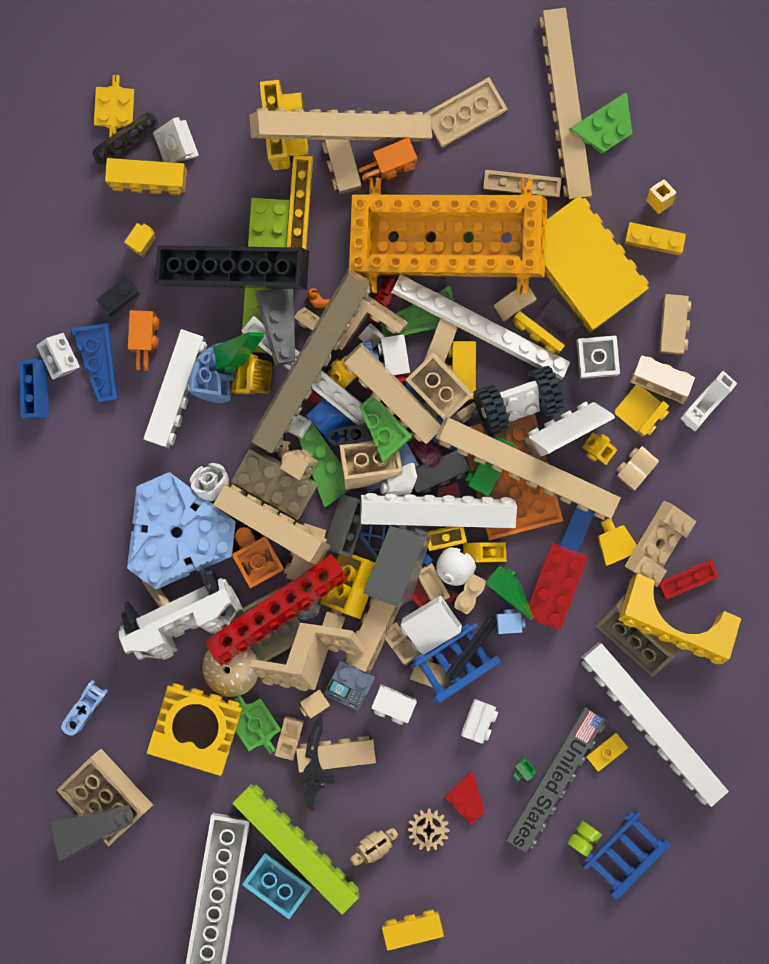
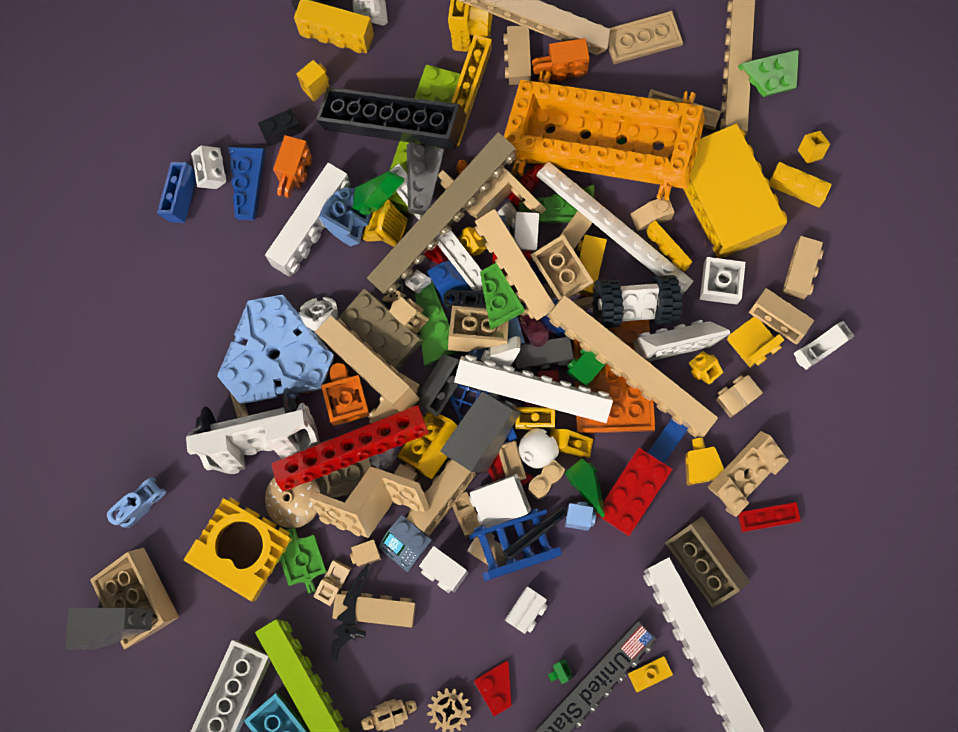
camera: 20 degrees right, 10 degrees down
(641, 612) = (717, 537): yellow arch -> none

